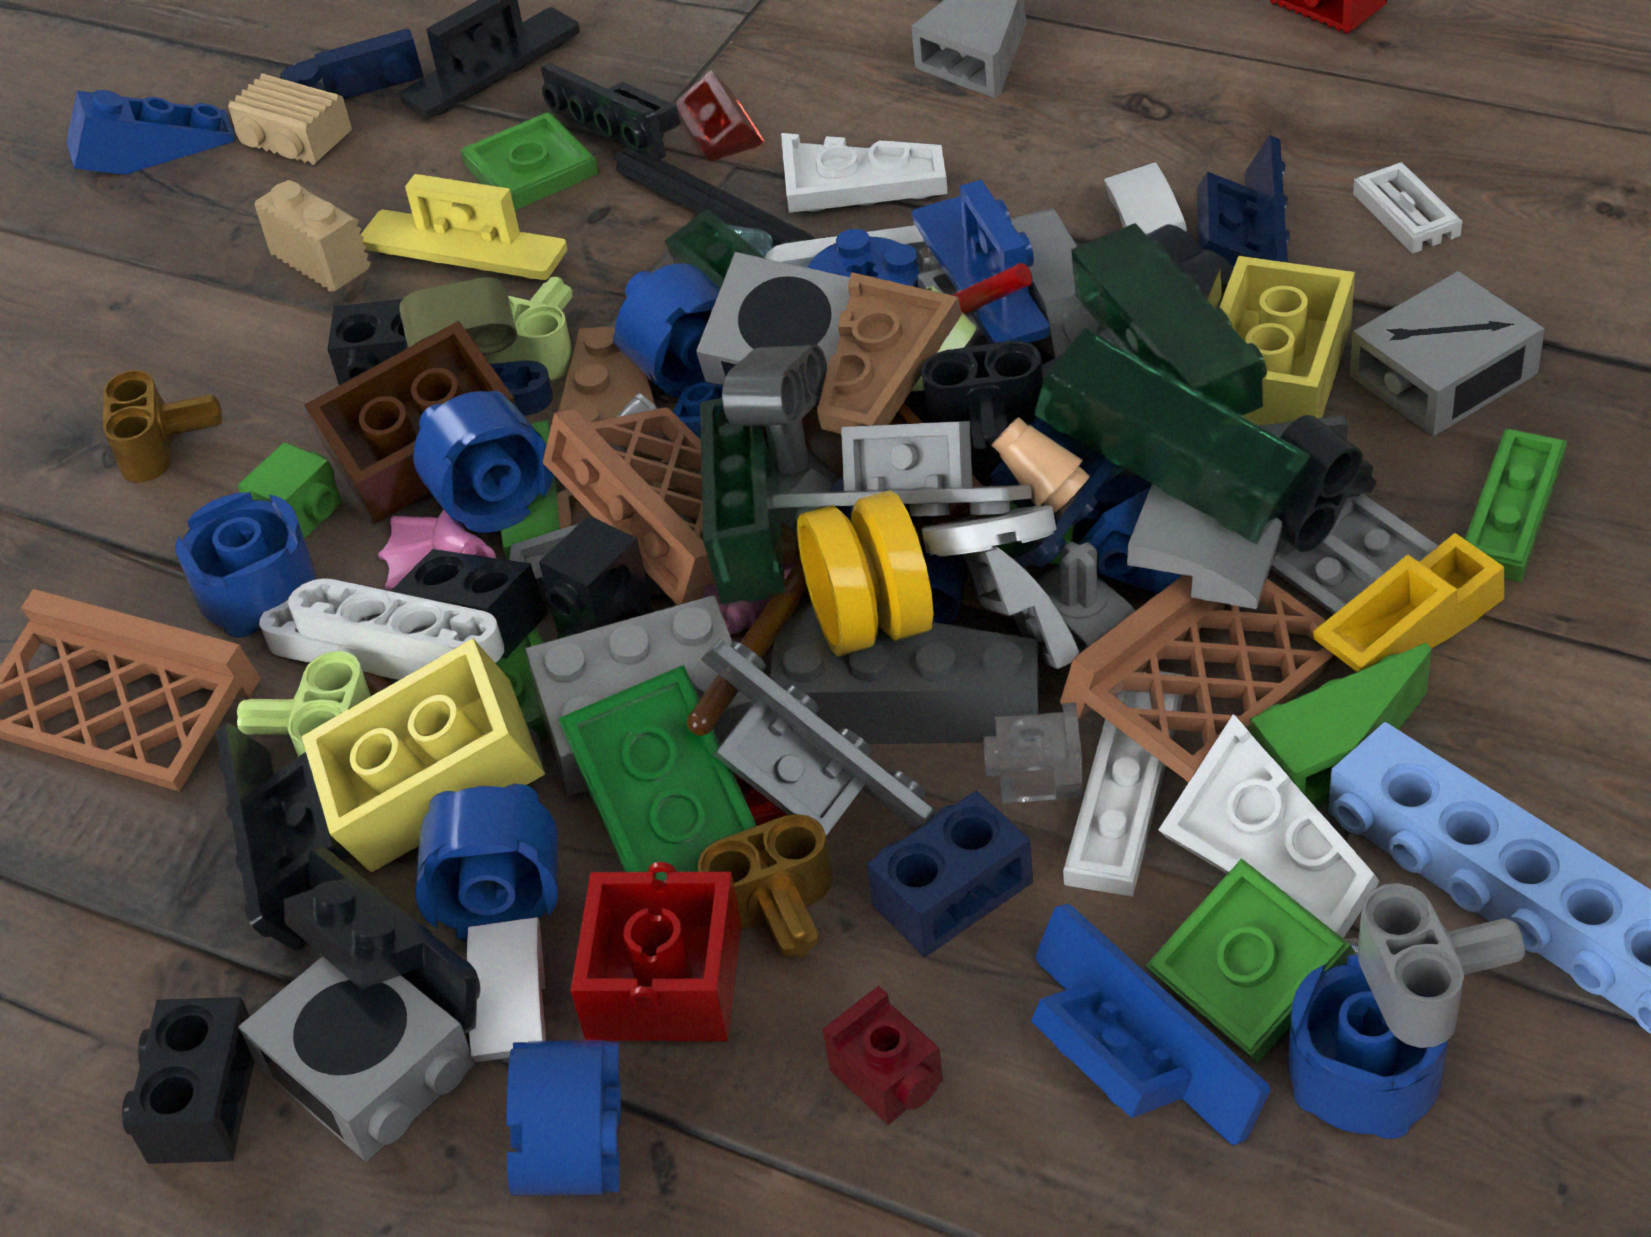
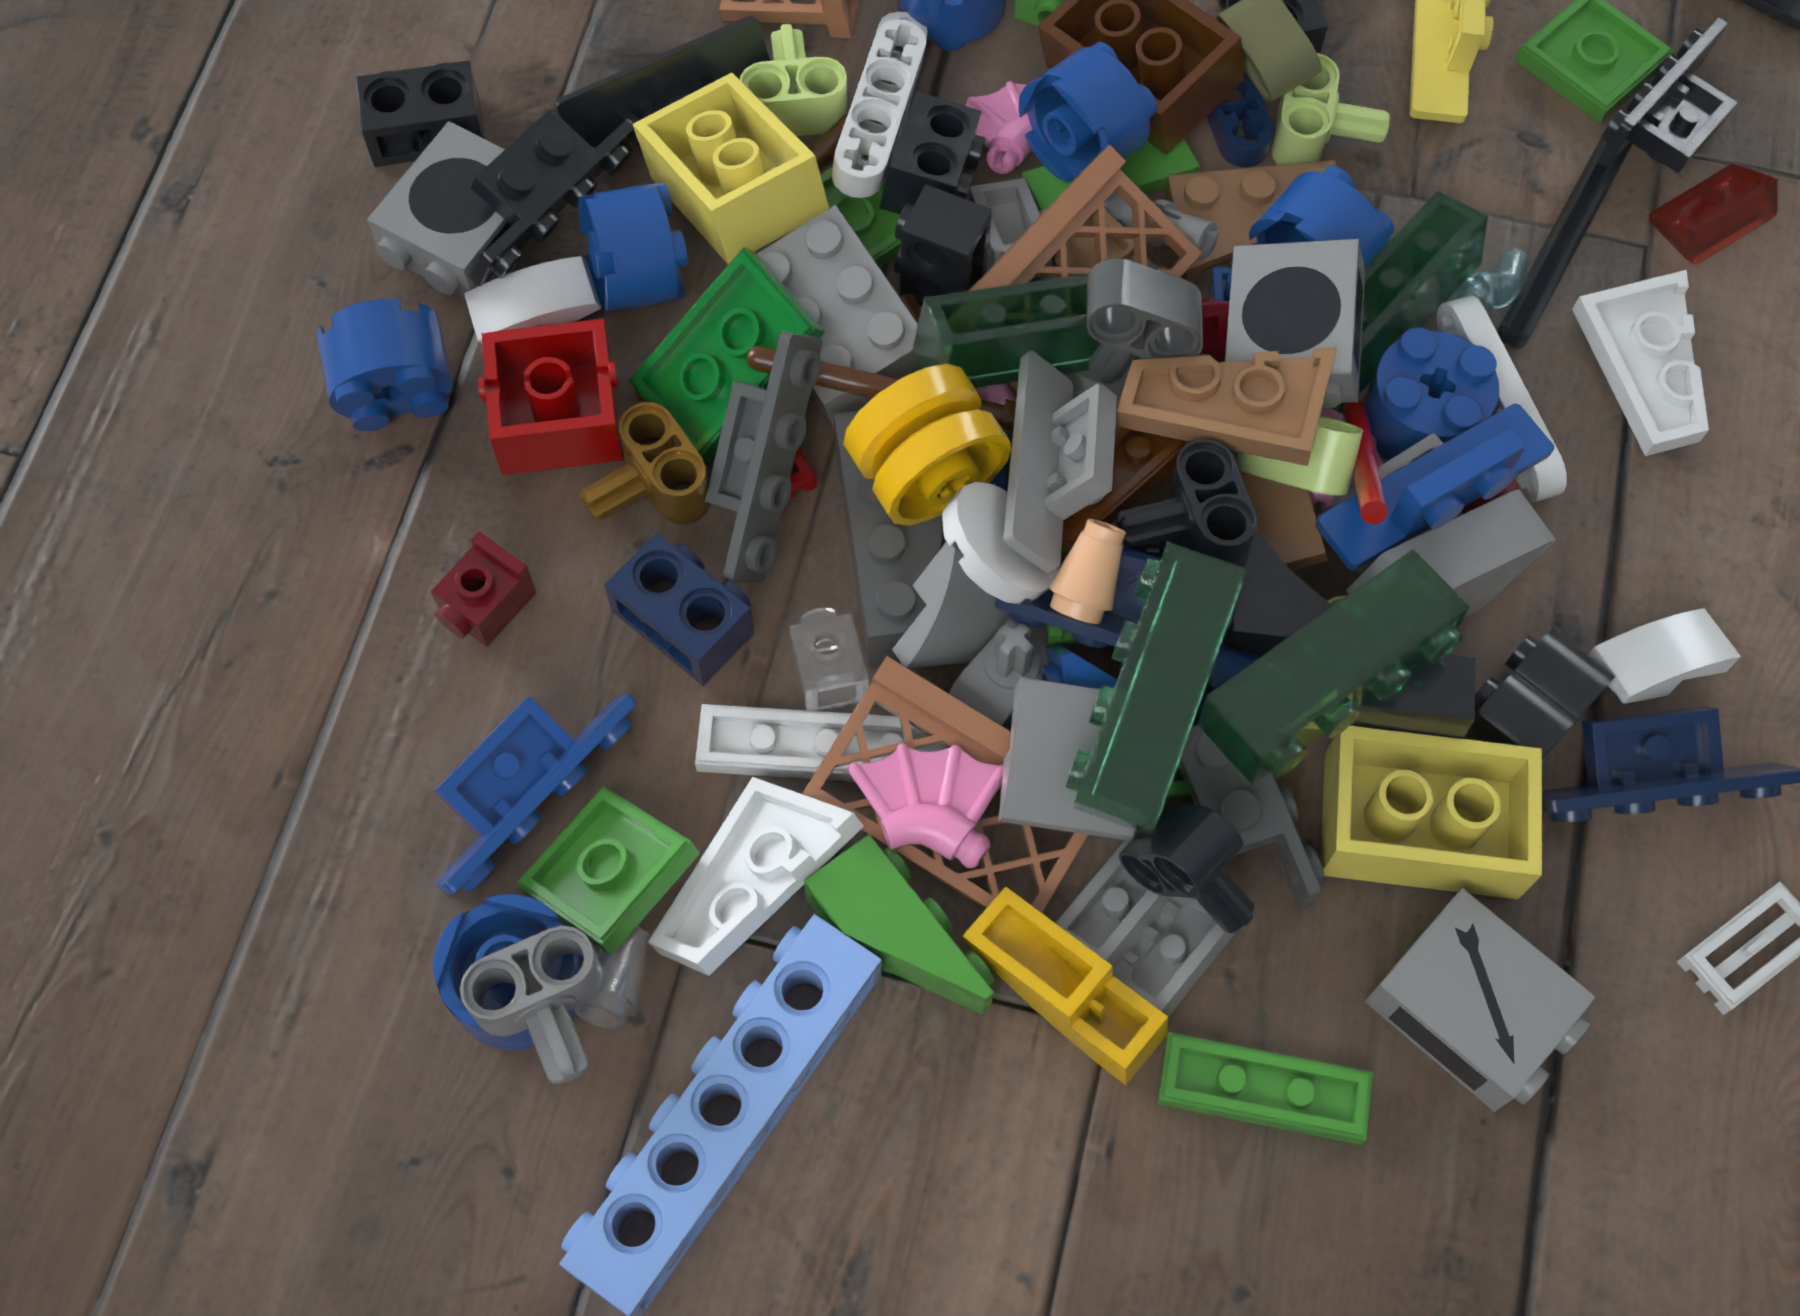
camera: 70 degrees right, 20 degrees up
(1221, 666) = (931, 799): none -> bright pink arm

